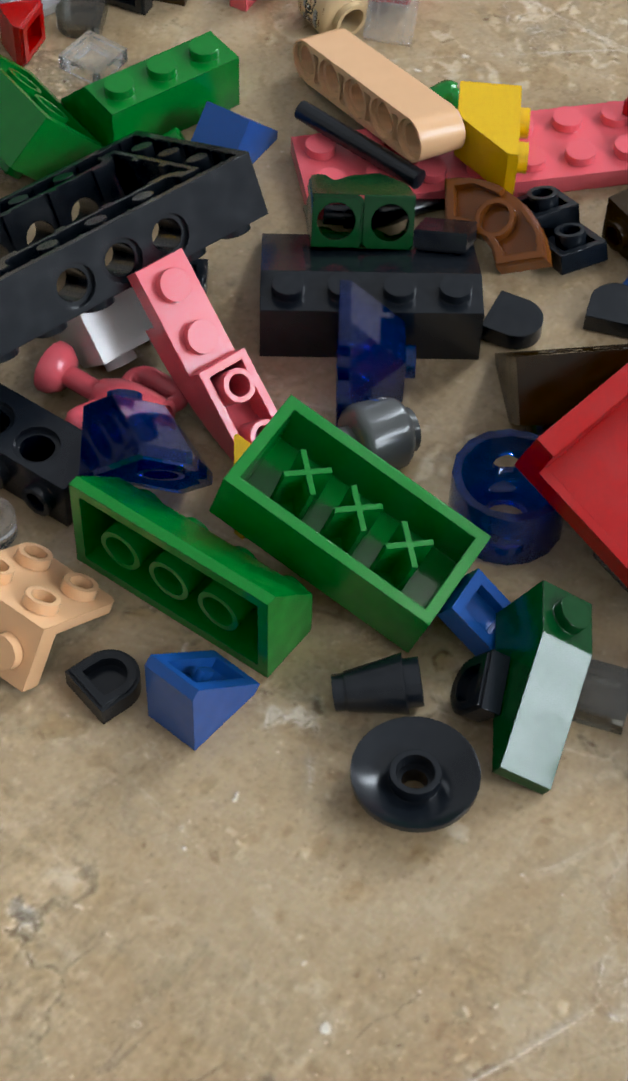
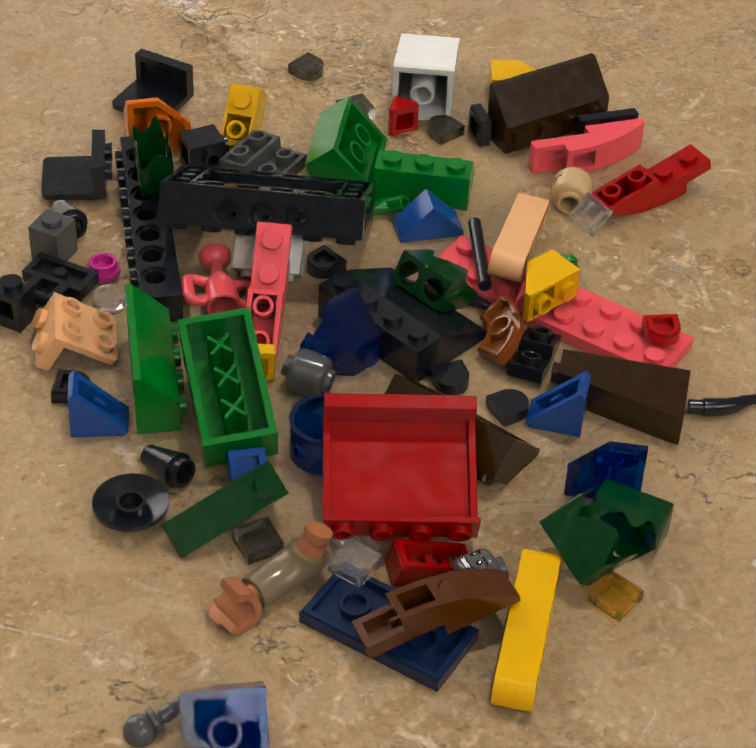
camera: 45 degrees right, 10 degrees down
(92, 57) = (422, 145): clear tile -> none
(139, 445) = (185, 292): clear blue slope -> none
(445, 235) = (464, 316): black tile -> none
(480, 686) = (203, 490): black tile -> none

